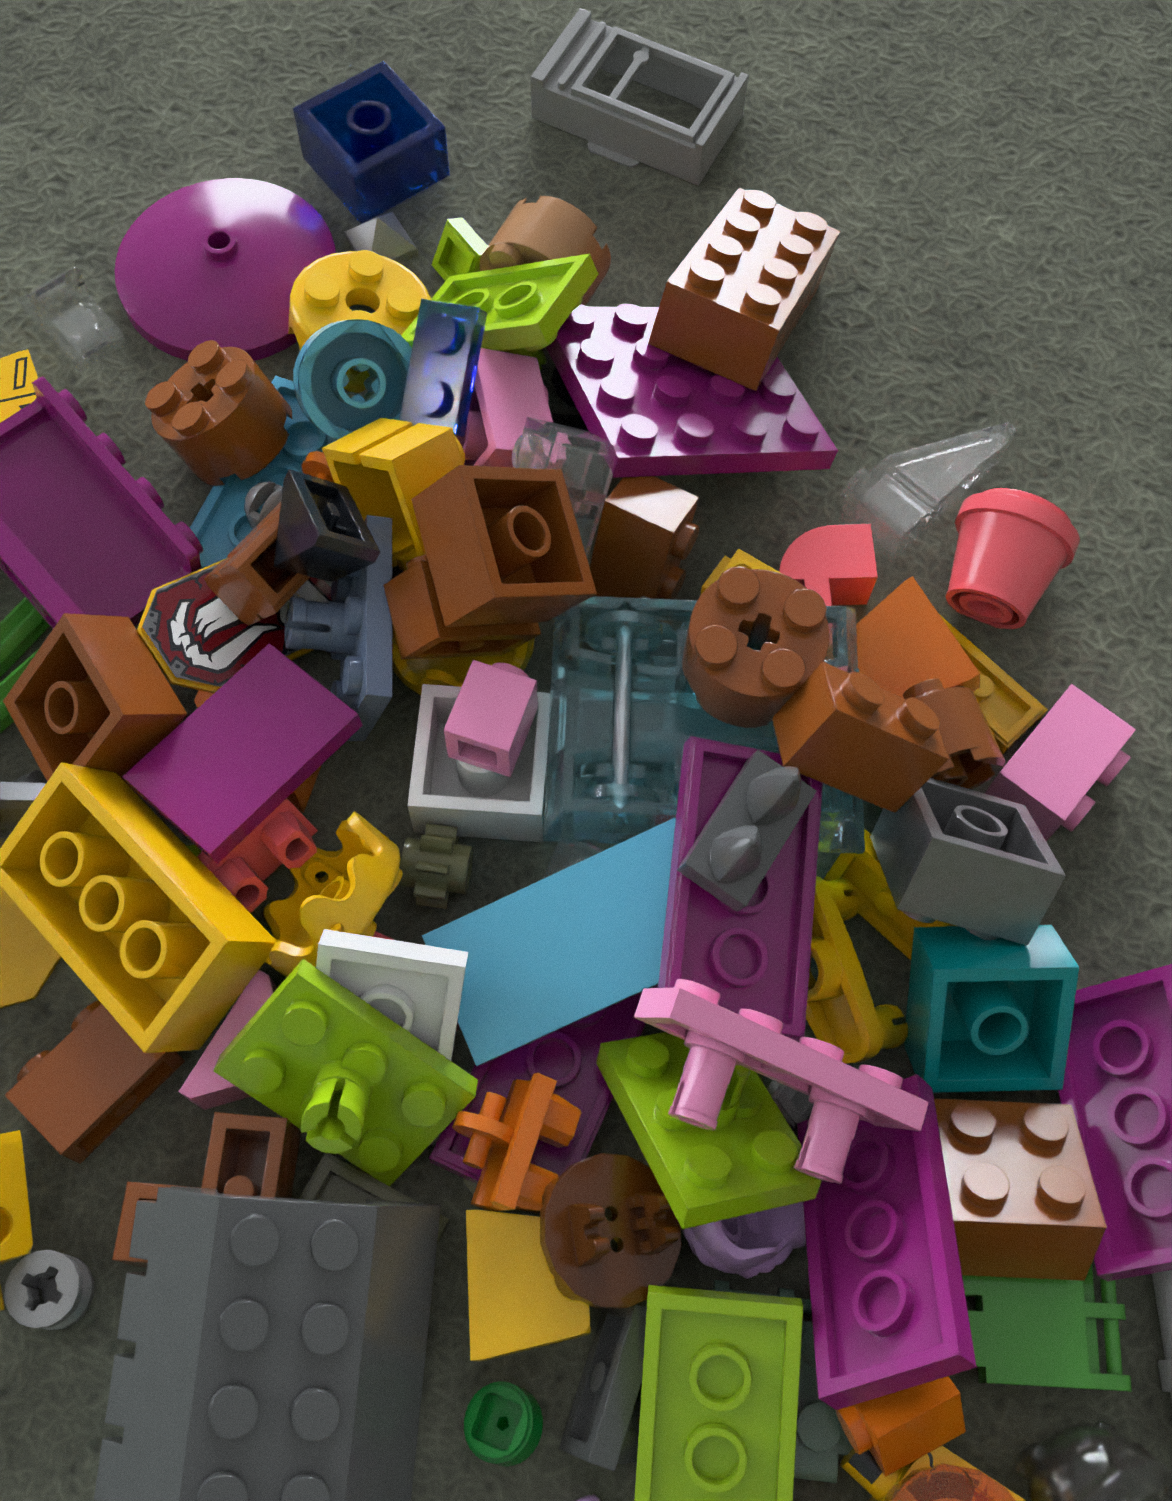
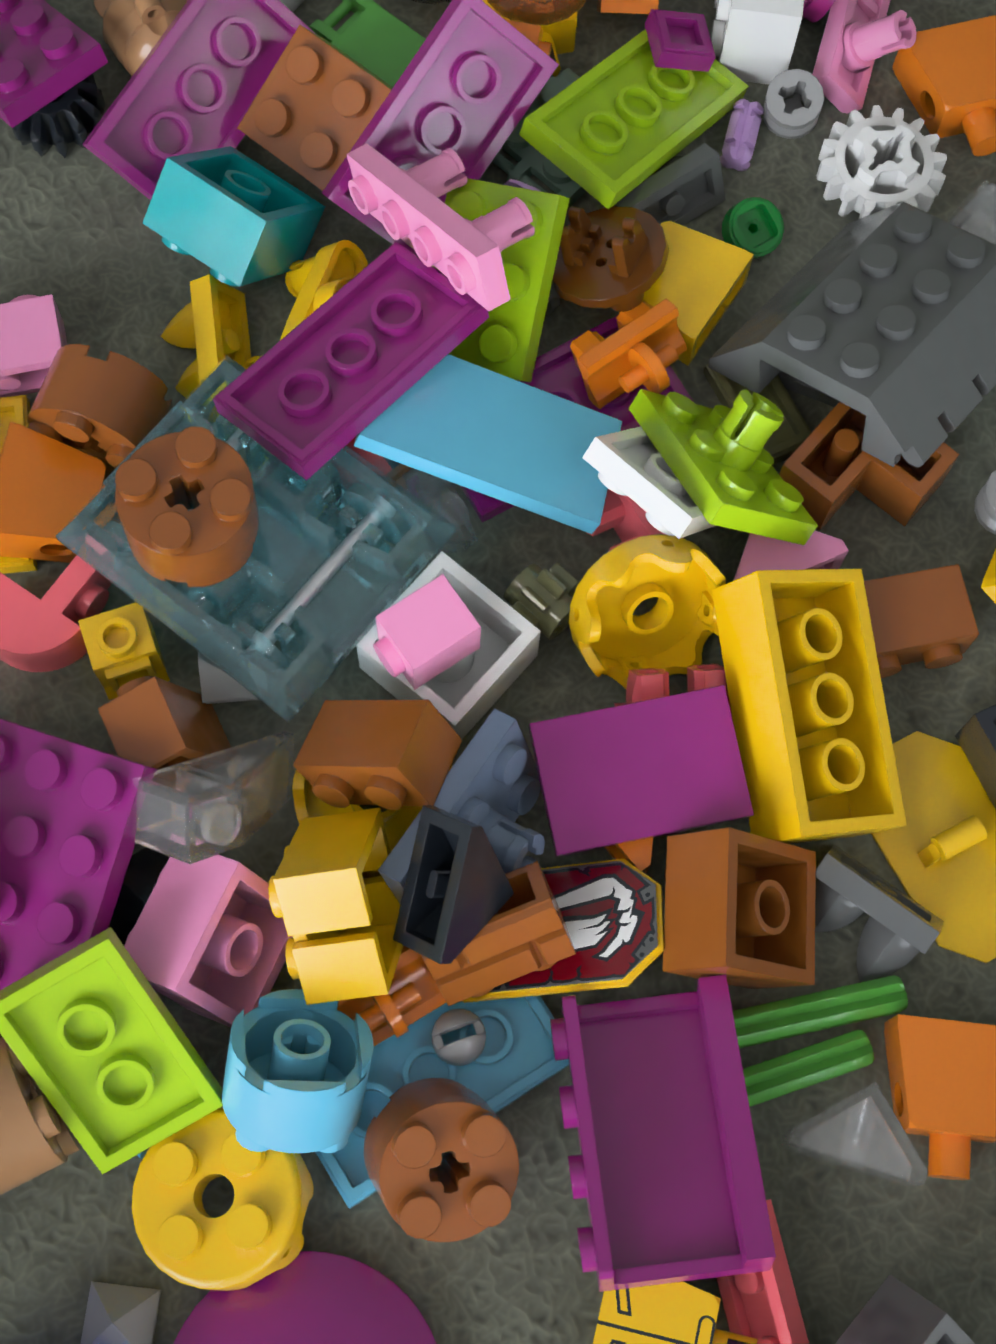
camera: 145 degrees left, 5 degrees up
(443, 365) = (219, 986): clear blue plate -> none
(458, 250) = (63, 1212): lime tile -> none
(502, 545) = (318, 728): dark orange brick -> none
(747, 830) = (320, 372): dark grey tile -> none
(859, 737) = (177, 379): dark orange brick -> none
(967, 862) = (165, 289): flat silver brick -> none

